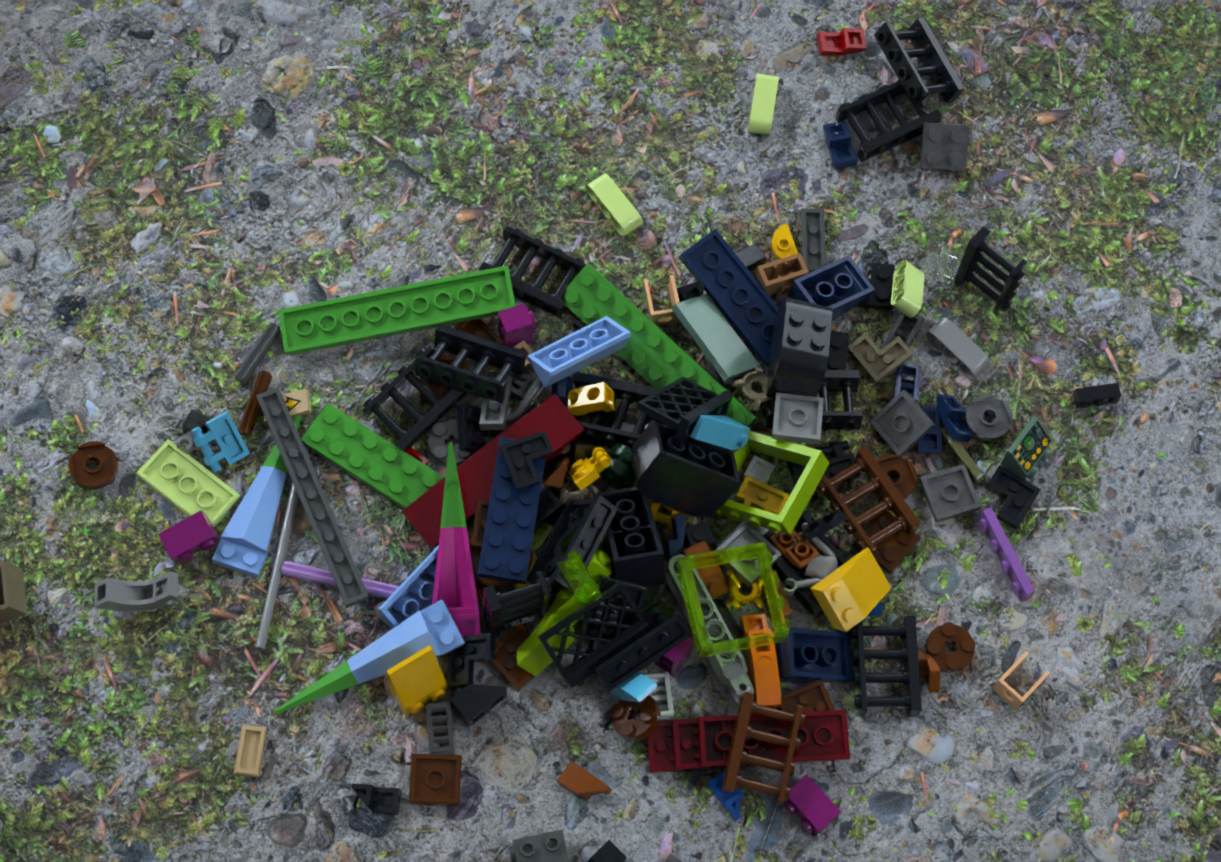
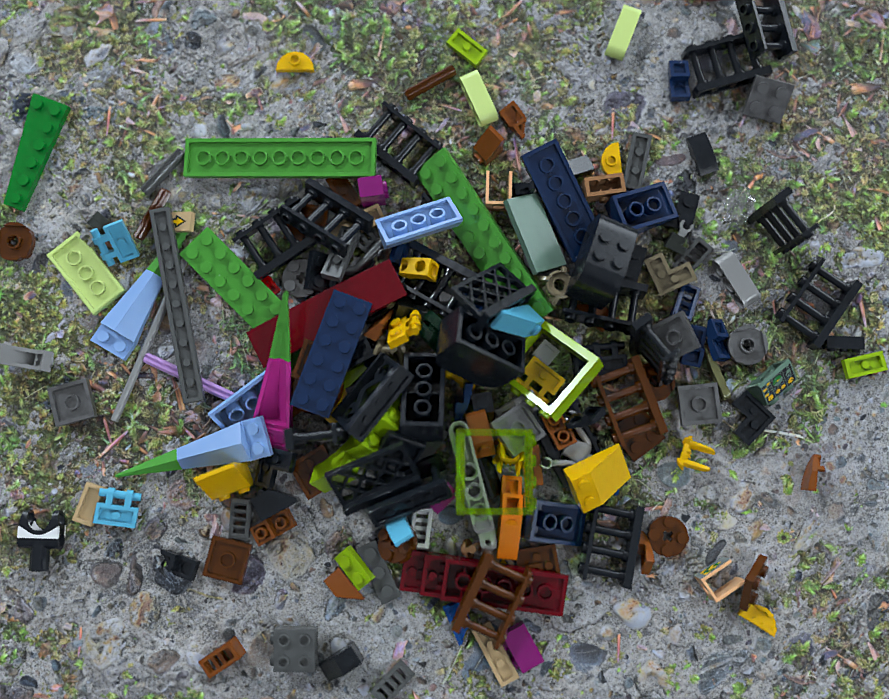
camera: 20 degrees right, 15 degrees up
(97, 340) = (37, 141): none -> green wing
(189, 537) = (74, 318): magenta brick -> none
(201, 803) = (41, 540): none -> black connector
(205, 636) = (72, 402): none -> flat silver plate
(288, 753) = (115, 514): none -> medium azure plate
(389, 203) = (295, 62): none -> yellow plate
(481, 732) = (273, 526): none -> dark orange slope
(519, 457) = (343, 312): black plate -> none
(552, 197) = (430, 82): none -> reddish brown axle
(580, 578) = (370, 438): clear neon green hinge -> none
(587, 152) = (466, 47): none -> lime plate
(591, 756) = (354, 567): none -> lime plate
(620, 758) = (383, 581): none -> dark grey plate
(639, 254) = (488, 146): none -> dark orange slope
(660, 220) = (514, 119): none -> dark orange slope
(721, 707) = (468, 549): none -> medium nougat plate
(782, 823) = (497, 659): none -> tan plate
(797, 418) = (586, 321): light grey plate -> none
(879, 317) = (676, 241): none -> pearl dark grey piece
(881, 433) = (646, 343): none -> black fence
(887, 219) = (703, 154): none -> black slope
(907, 289) = (706, 221): yellowish green beam -> none
(950, 555) = (689, 444): none -> yellow piece
(1009, 562) = (730, 459): medium lavender plate -> none
(1057, 671) = (753, 582): none -> reddish brown plate
(1071, 374) = (826, 321): none -> black fence
(1079, 716) = (760, 617): none -> yellow plate
(1096, 550) = (809, 478): none -> dark orange slope
(1126, 414) = (864, 365): none -> lime plate

